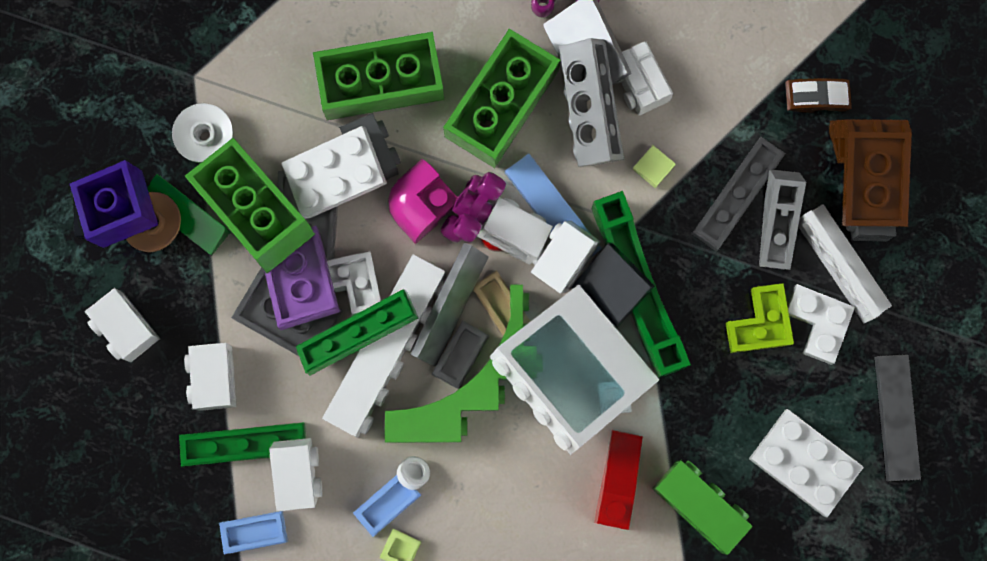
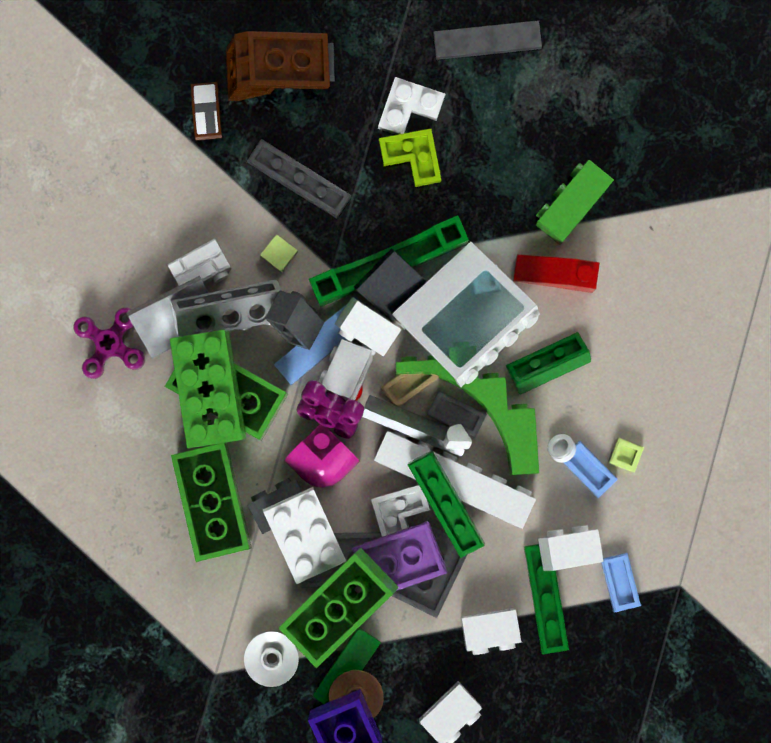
camera: 95 degrees left, 5 degrees up
(431, 349) = (457, 438): none -> white tile
(494, 52) = (190, 384): none -> bright green brick
(513, 465) = (549, 363): none -> green slope
(577, 174) = (295, 319): none -> dark grey brick
(781, 218) = (320, 141): light grey slope -> none
(806, 463) = (530, 116): white plate -> none
(843, 264) = (357, 86): white fence -> none

